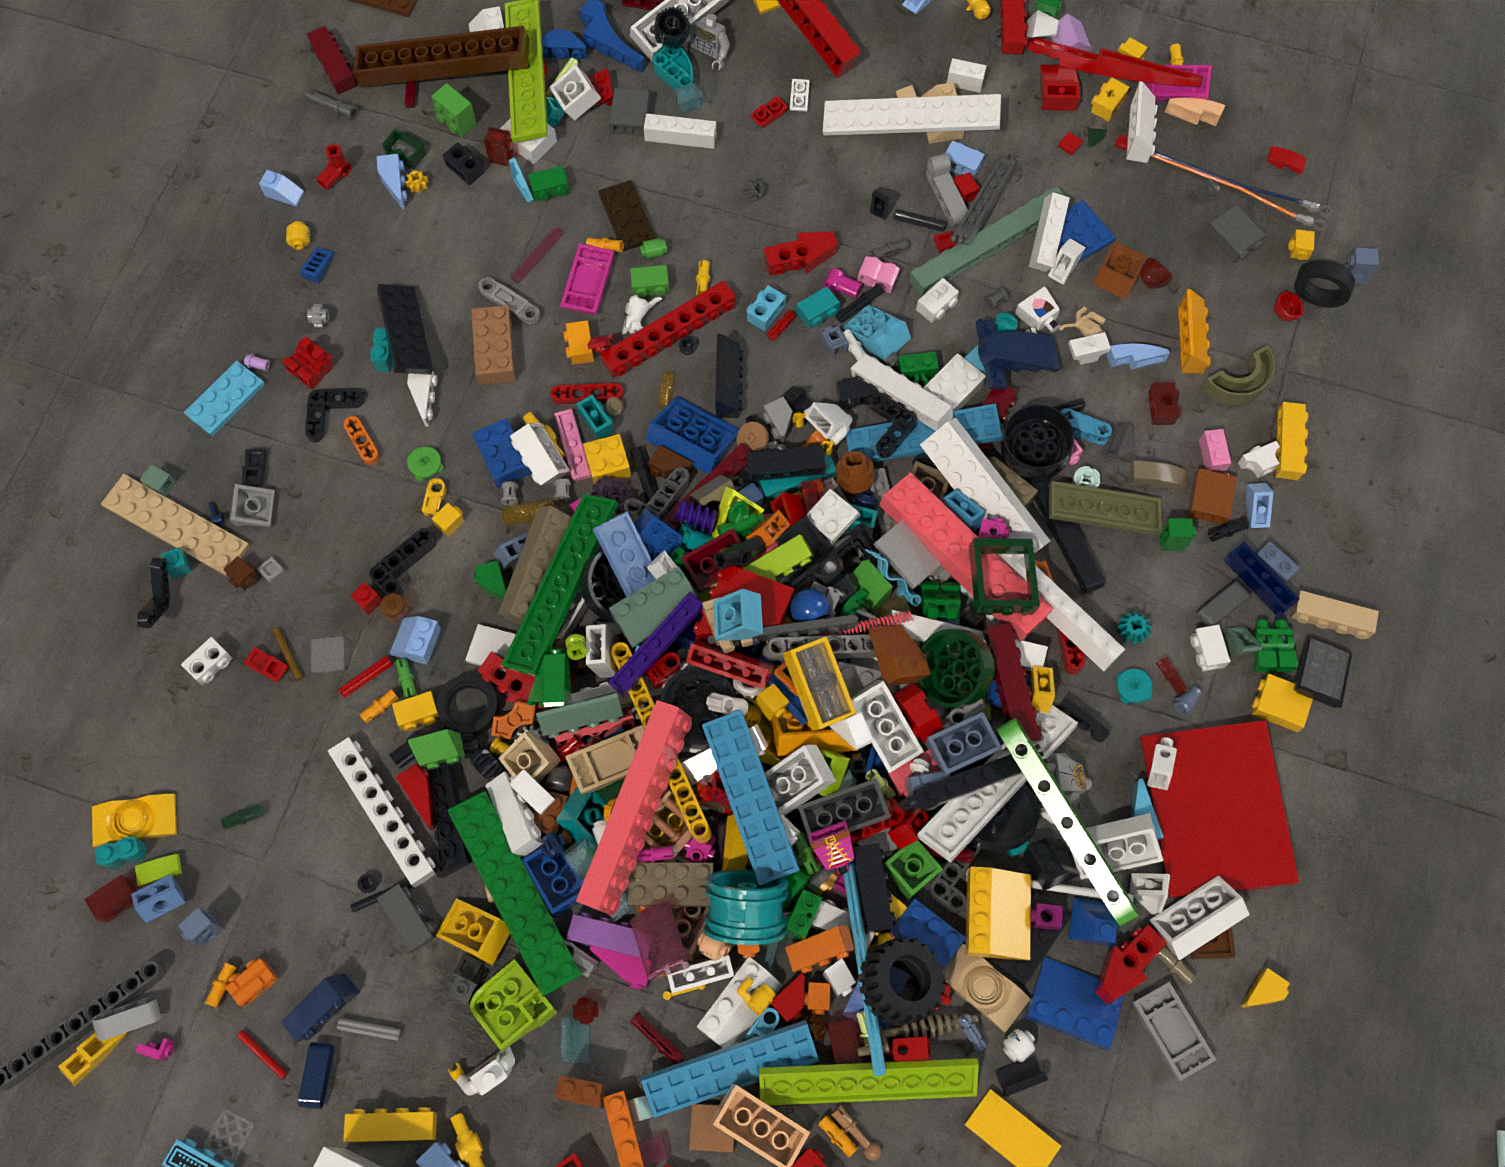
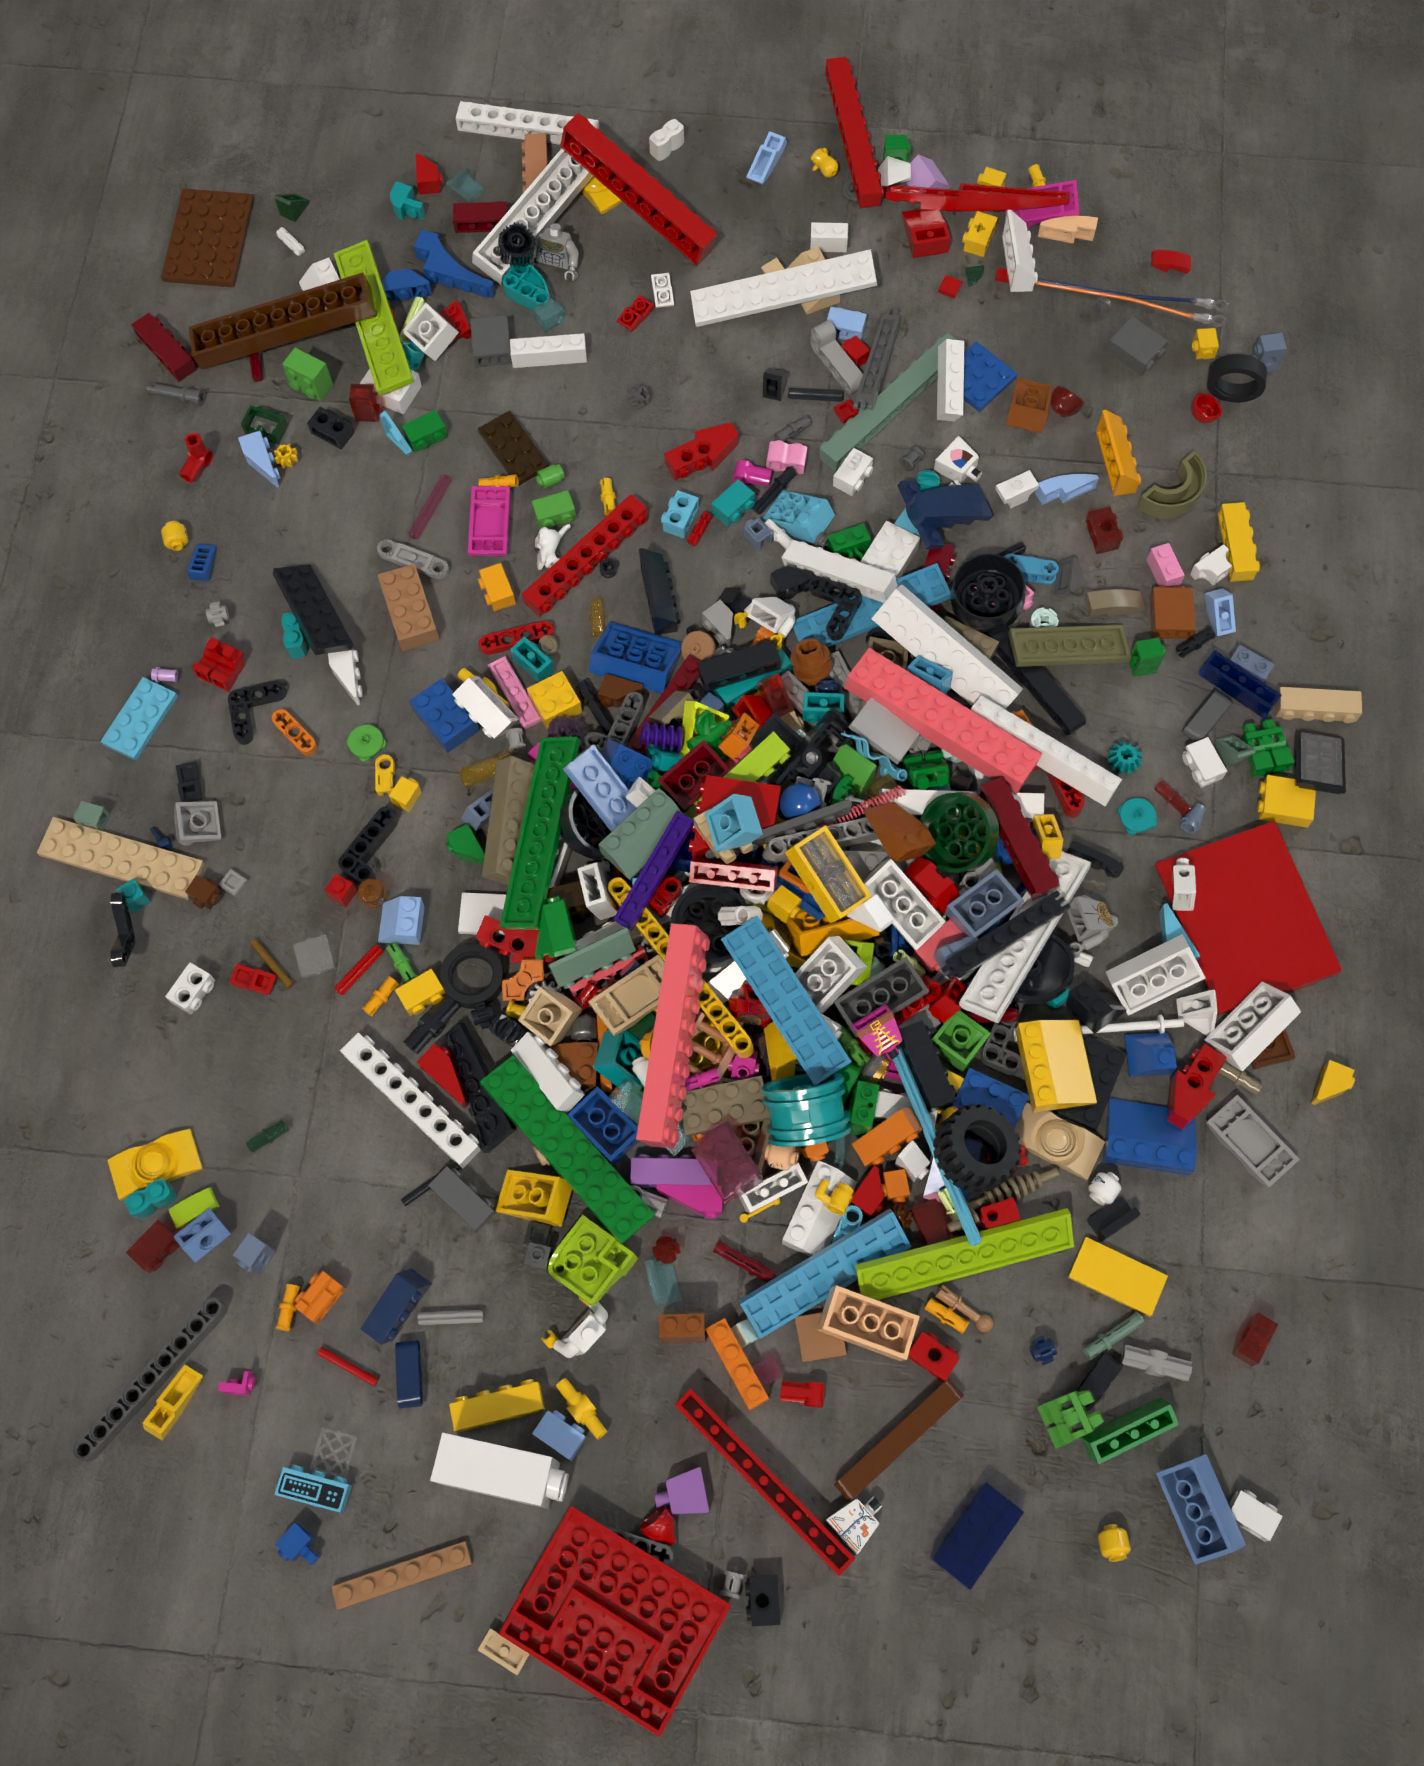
camera: 10 degrees left, 0 degrees up
(126, 1018) = (200, 1360): light grey beam -> none
(280, 188) = (144, 491): light blue slope -> none
(372, 879) = (408, 1170): black bush -> none
(437, 748) = (454, 1023): bright green slope -> none
(509, 499) = (462, 754): light grey bush -> none
(532, 792) = (561, 1045): white slope -> none
(553, 844) = (596, 1092): dark blue gear -> none
(576, 647) = (572, 891): lime wheel -> none
(600, 343) = (520, 582): red slope -> none
(739, 554) = (717, 763): black piece -> none
(832, 515) = (800, 707): white plate -> none
(919, 767) = (945, 937): white plate -> none
(972, 1032) = (1055, 1185): sand blue axle -> none
(988, 526) = (959, 685): dark pink brick -> none
(1003, 546) = (981, 701): dark green window -> none
(1055, 916) = (1110, 1051): magenta brick -> none
(1066, 261) = (974, 406): white slope -> none
(1075, 835) = (1115, 970): beam -> none
(1085, 324) = (1007, 466): tan piece -> none

